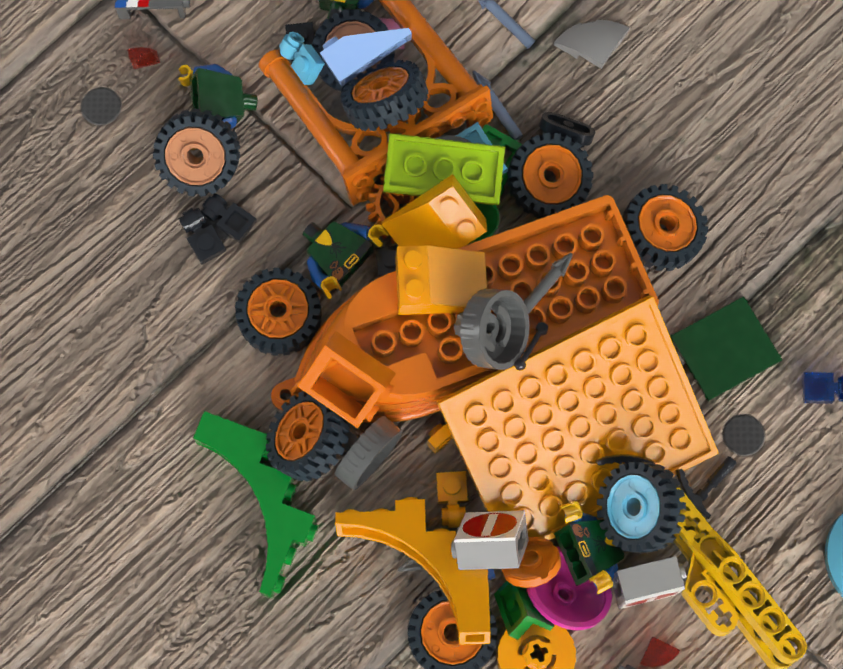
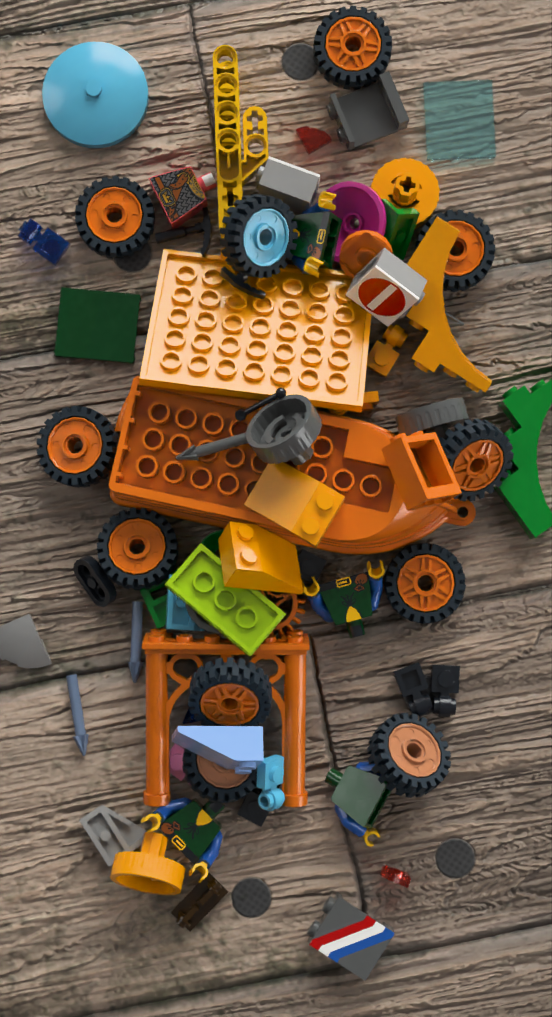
camera: 150 degrees left, 10 degrees up
(740, 511) = (181, 194): none -> torso
(804, 447) = (112, 197): none -> wheel

